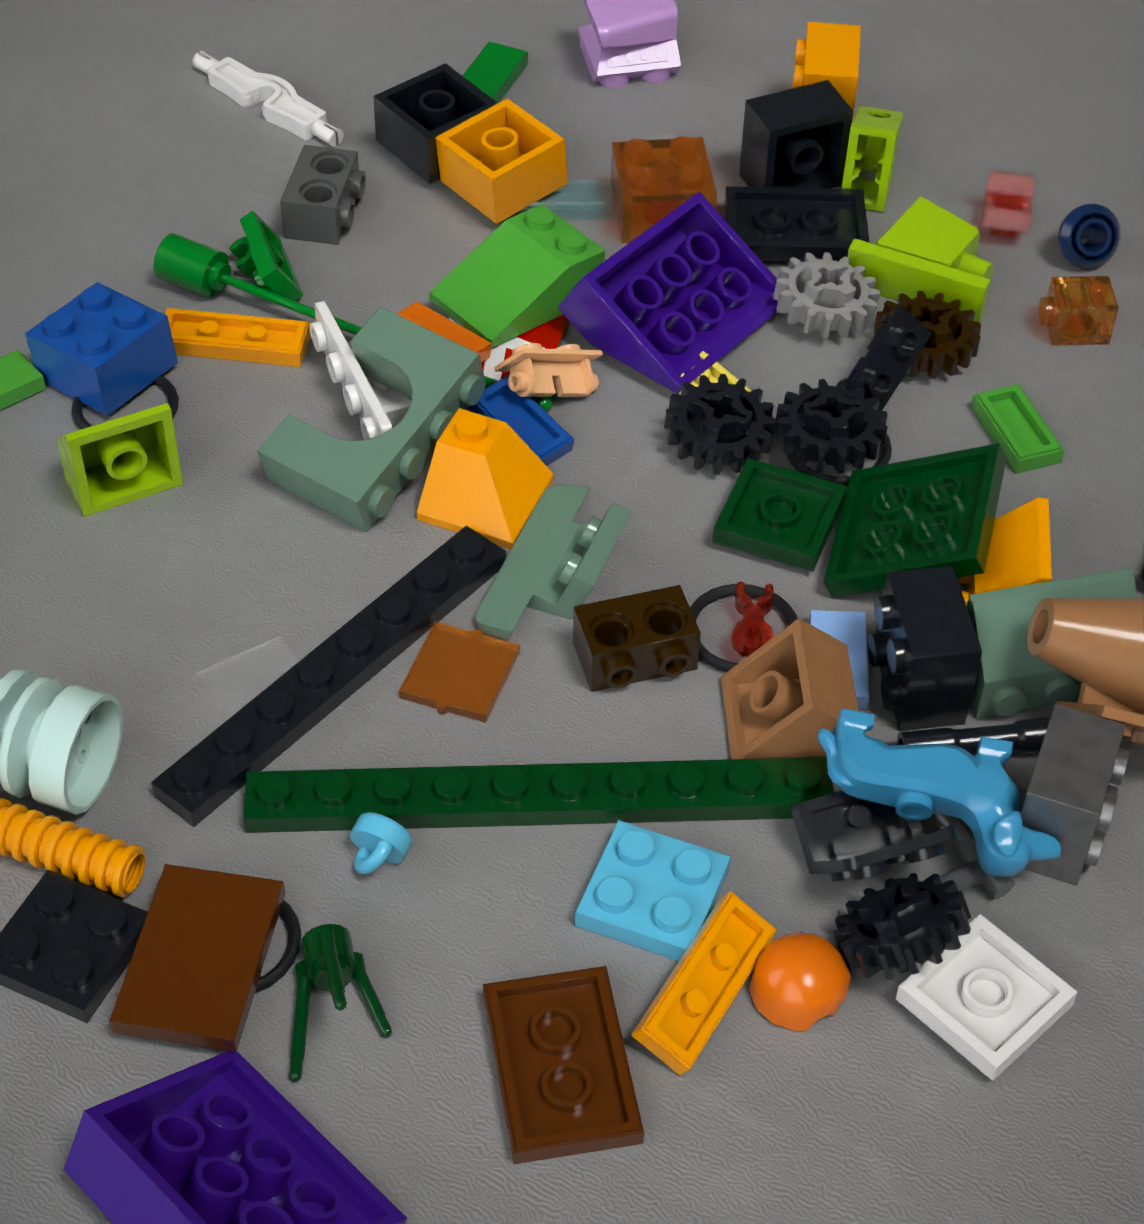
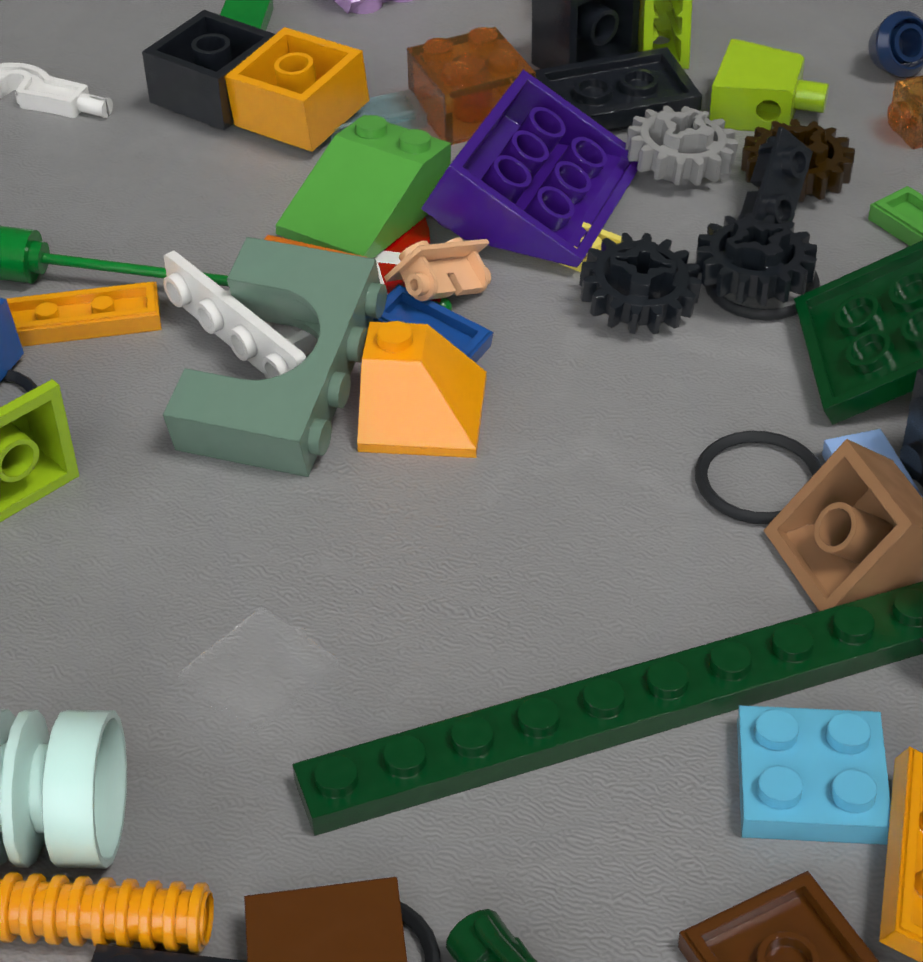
camera: 15 degrees left, 5 degrees down
(265, 258) = (74, 222): green plate -> none
(322, 195) = (118, 159): dark grey brick -> none
(327, 676) = (328, 647): black plate -> none
(378, 841) = (483, 797): medium azure tile -> none
(459, 672) = (480, 595): clear orange piece -> none
(551, 561) = (533, 457): sand green plate -> none
(636, 638) = (661, 510): dark brown brick -> none
(752, 630) = (779, 476): clear red arm -> none
(779, 514) = (744, 356): dark green plate -> none
(908, 274) = (748, 109): lime tile -> none
(1008, 203) = (808, 32): clear red bracket -> none

